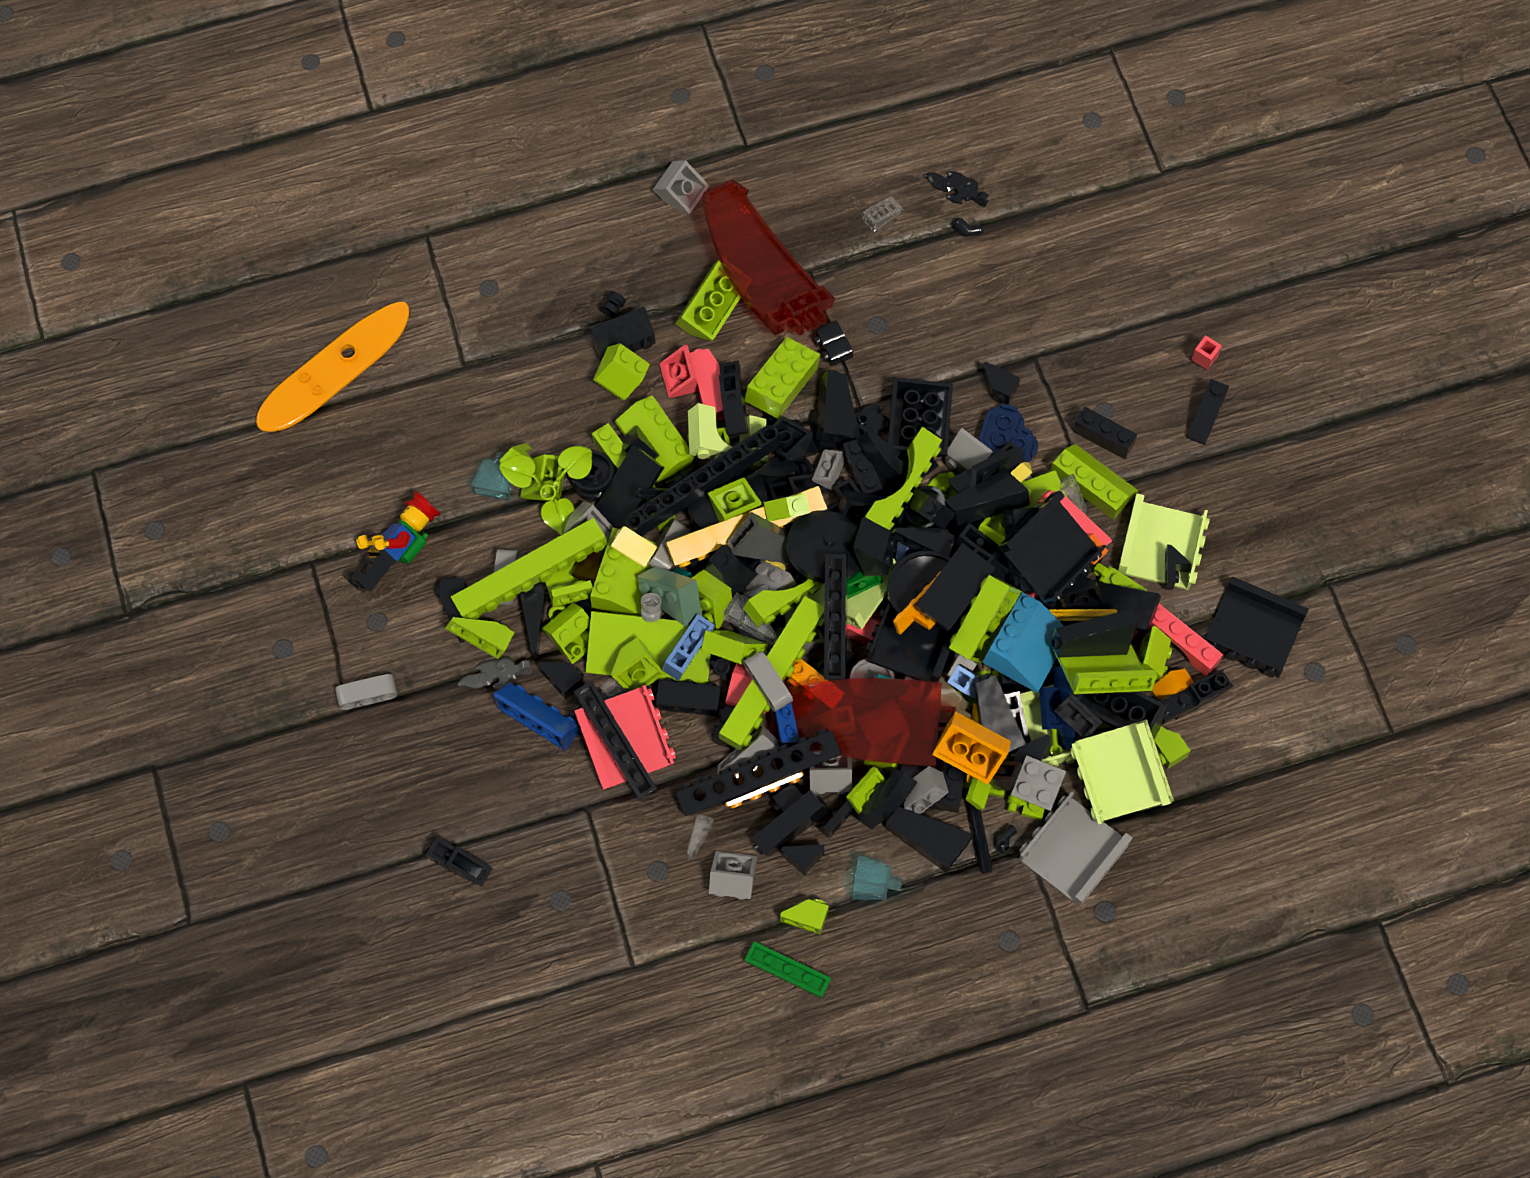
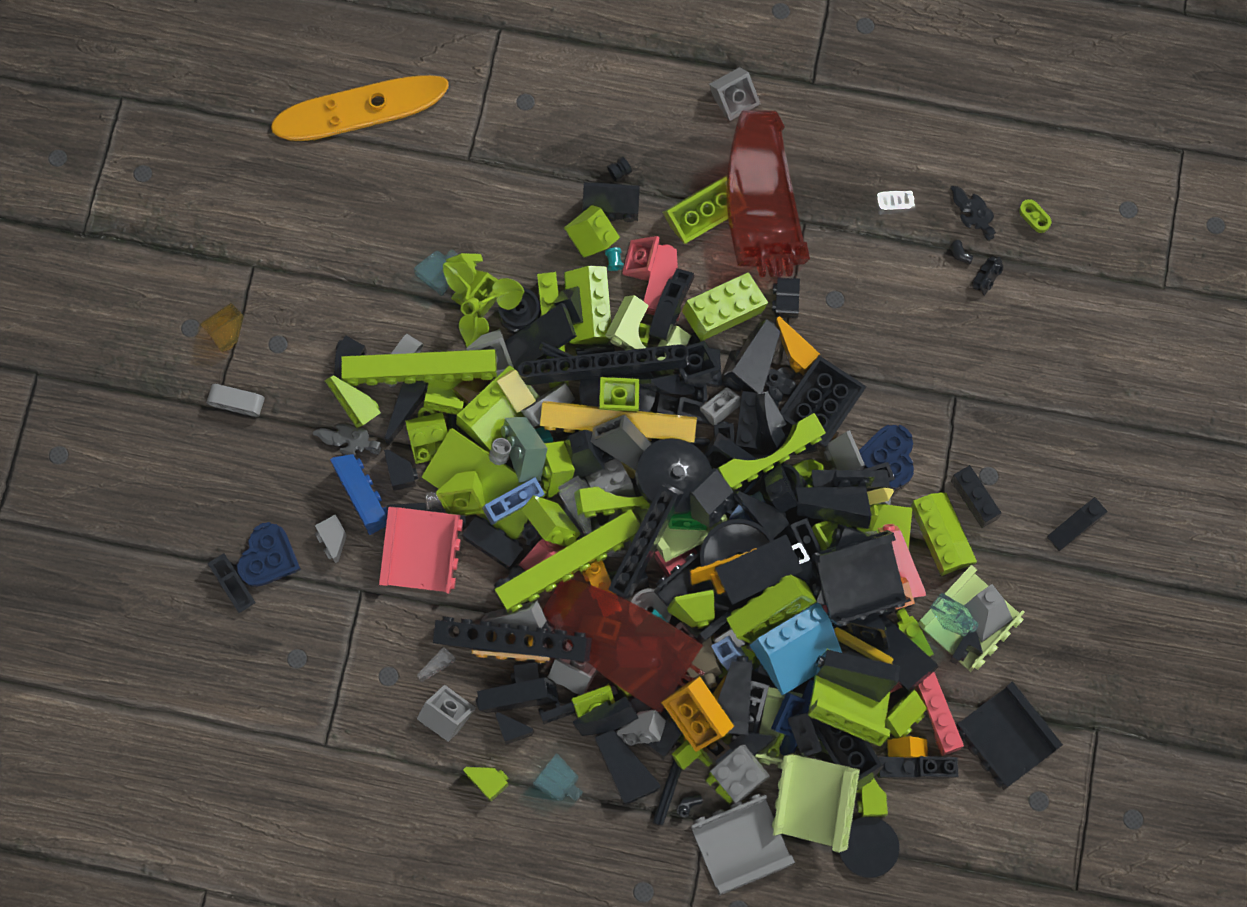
camera: 25 degrees right, 5 degrees up
(317, 630) = (224, 327): none -> clear yellow slope
(396, 544) = (324, 286): piece -> none
(480, 819) = (268, 556): none -> dark blue plate
(531, 768) = (333, 535): none -> light grey slope
(615, 740) = (409, 549): black brick -> none
(654, 386) = (614, 259): none -> teal bush
(768, 681) = (557, 567): light grey beam -> none
(786, 507) = (658, 424): lime slope -> none
(787, 725) = (557, 609): blue hinge -> none
(787, 970) = (446, 817): green plate -> none
(870, 384) = (798, 350): none -> light orange slope
(914, 655) = (694, 608): none -> lime slope
(1000, 383) = (910, 407): black slope -> none
(1003, 228) = (992, 268): none -> black hinge
(1015, 163) = (1037, 215): none -> lime plate
(1071, 490) = (915, 538): clear slope -> none
(1148, 544) = (961, 619): none -> clear light blue torso
(1173, 527) = (989, 611): none -> light grey slope
(1194, 791) = (871, 848): none -> black tile
(1206, 352) = (1106, 471): coral brick -> none

